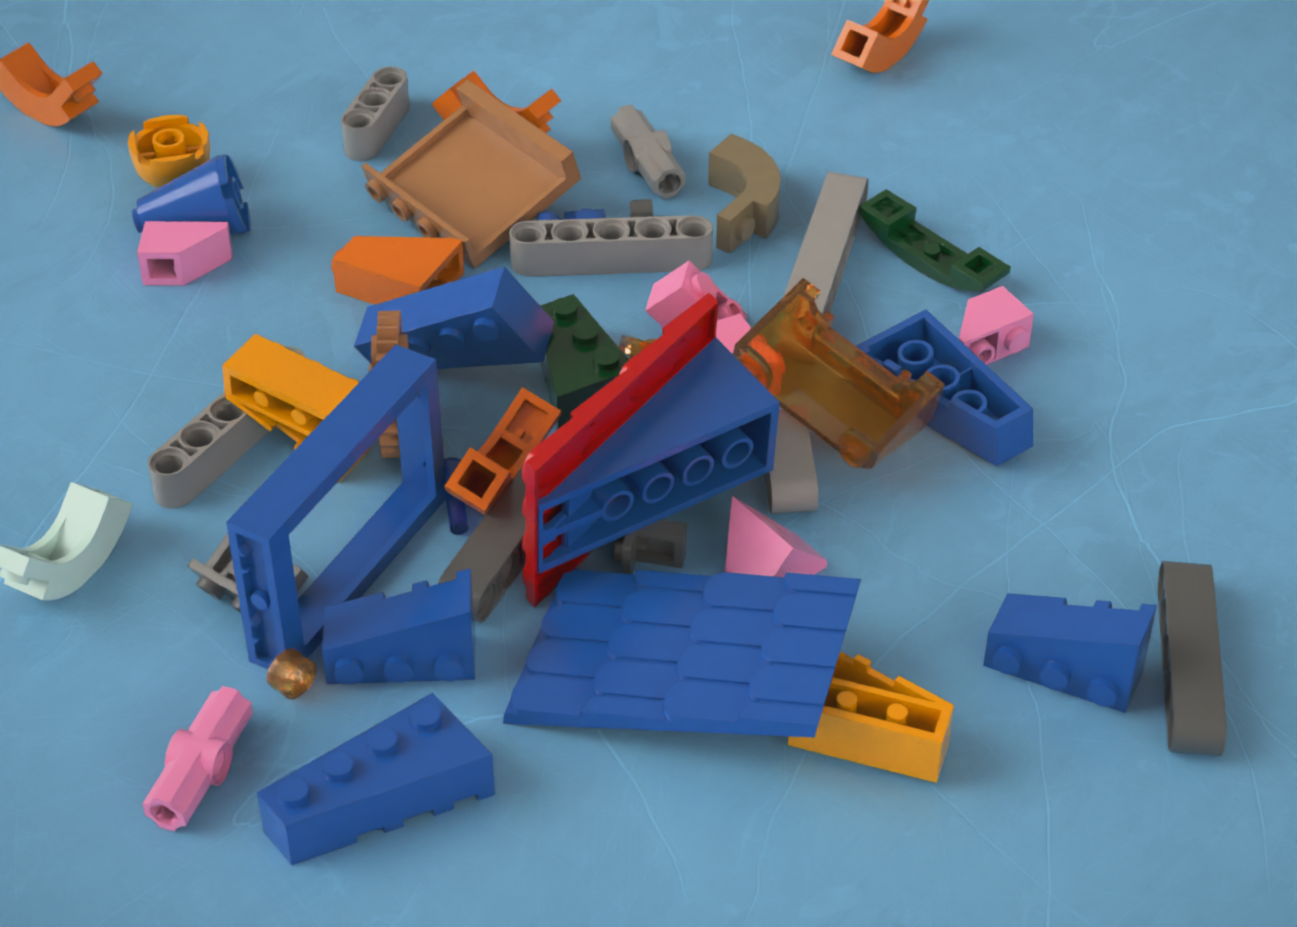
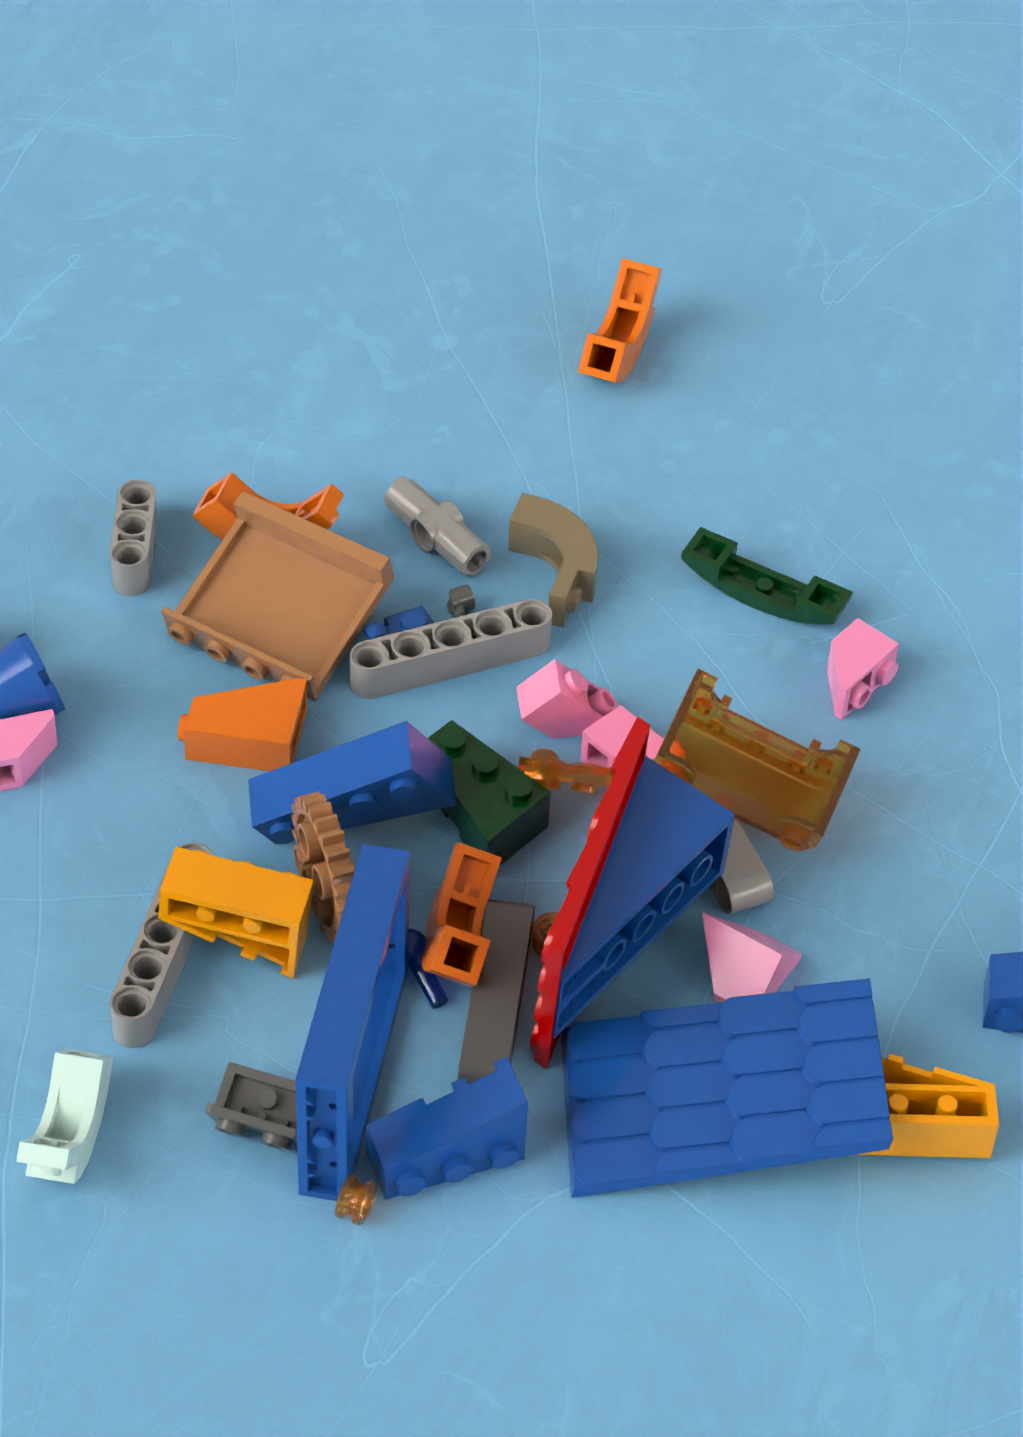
camera: 20 degrees left, 5 degrees up
(198, 758) = (309, 1310): bright pink piece -> none
(376, 780) = (501, 1282): blue wedge -> none
(655, 544) = (645, 975): dark grey bracket -> none
(830, 236) = (663, 615): light grey beam -> none
(975, 402) = (892, 760): blue wedge -> none

